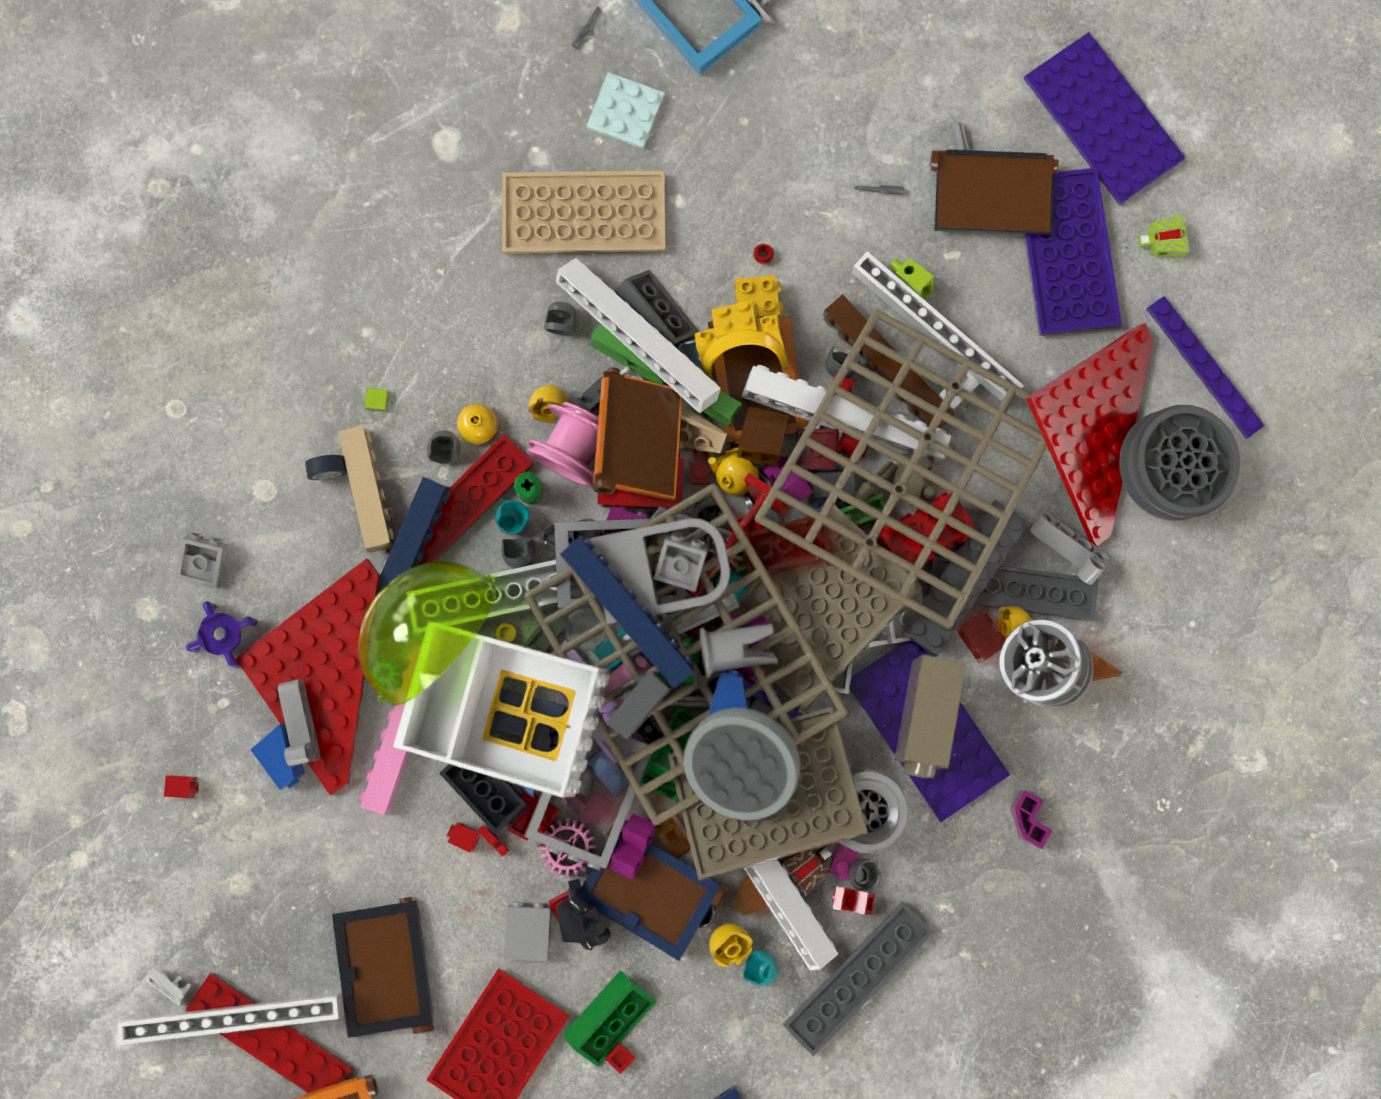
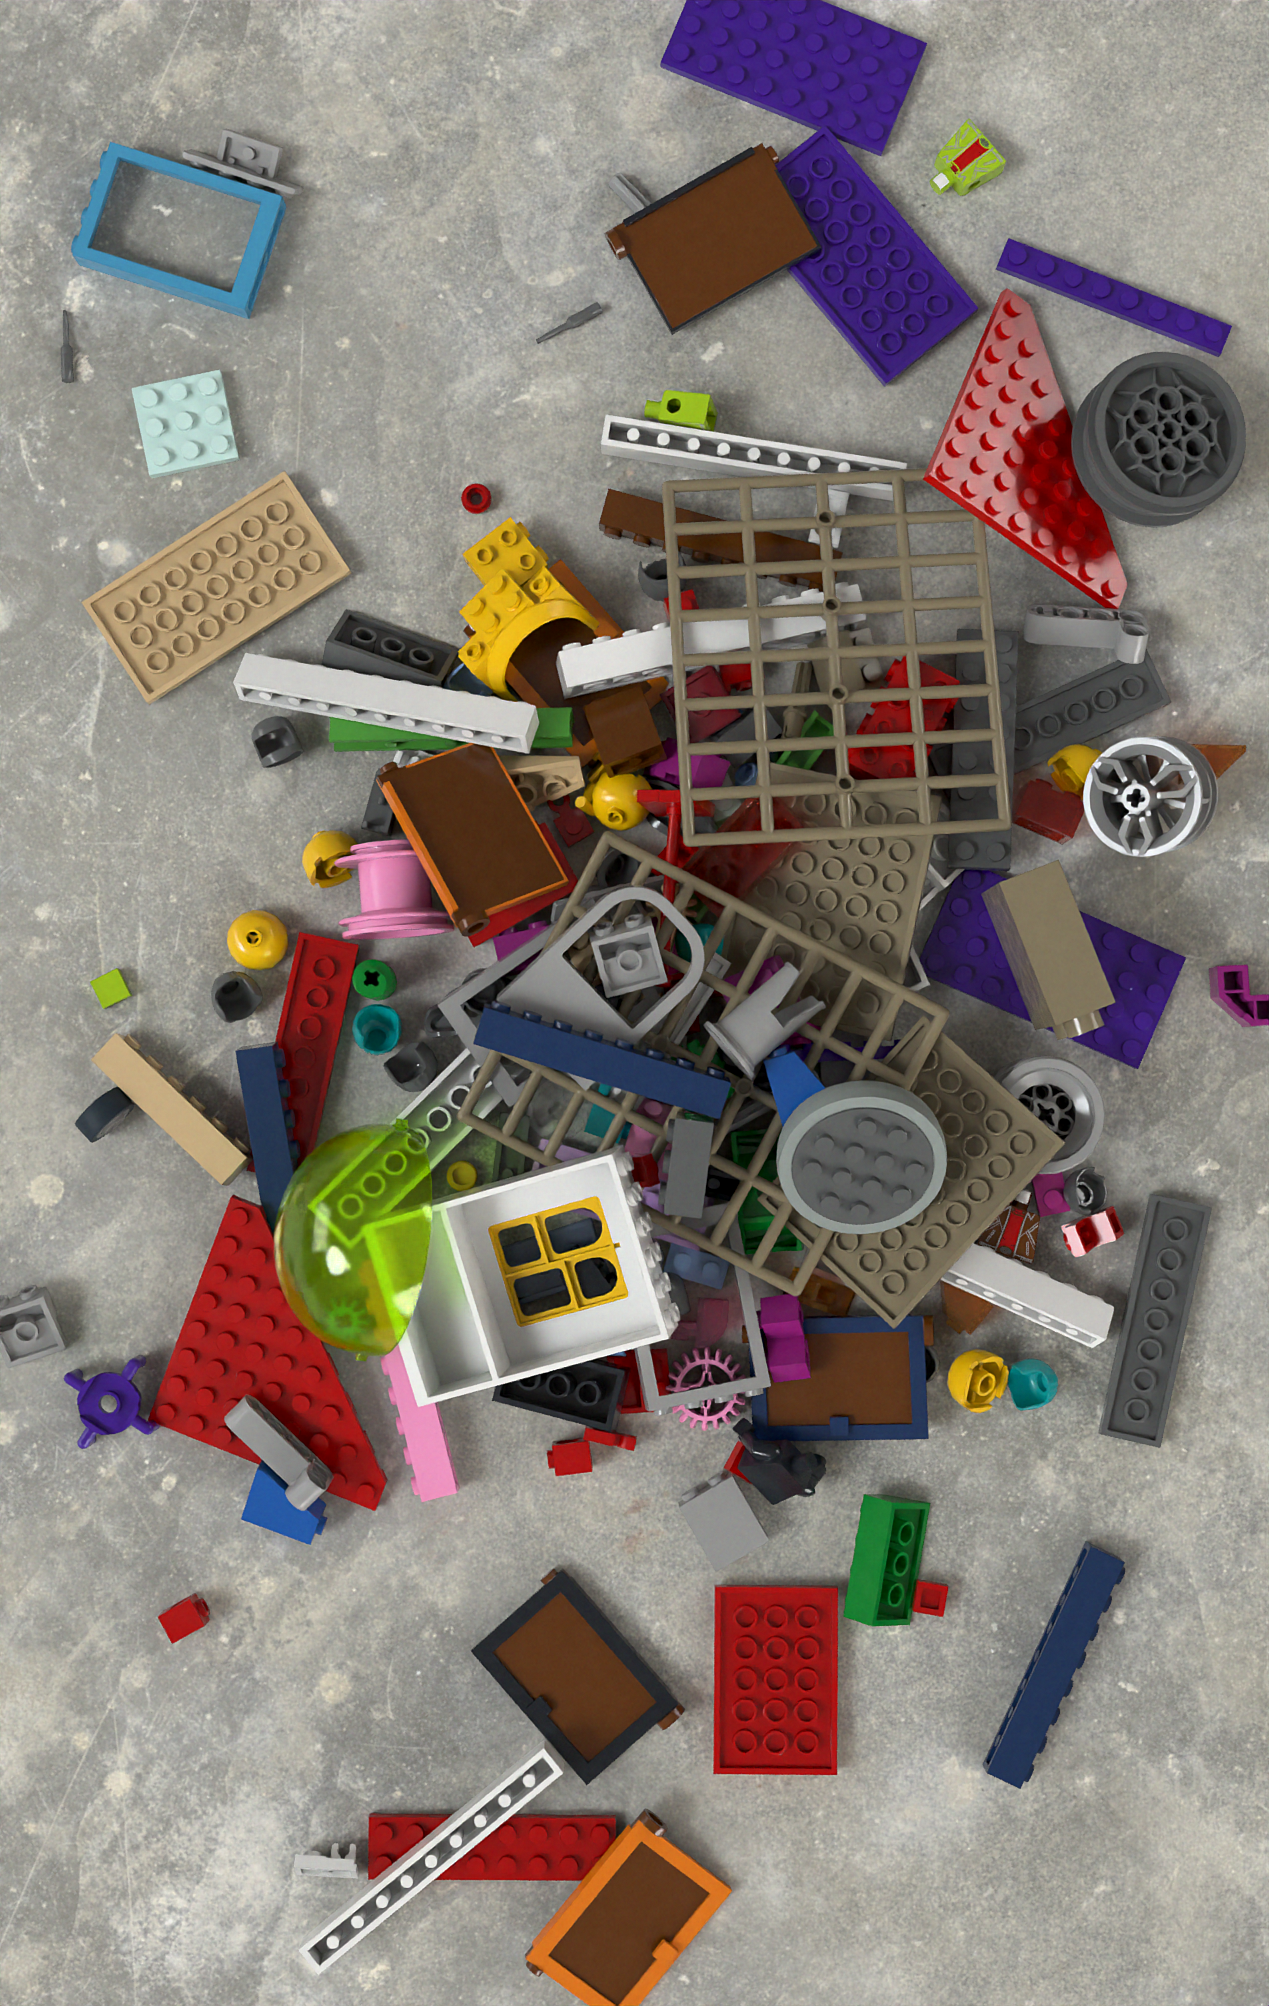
camera: 30 degrees left, 5 degrees up
(612, 693) = (645, 1170): none -> red plate

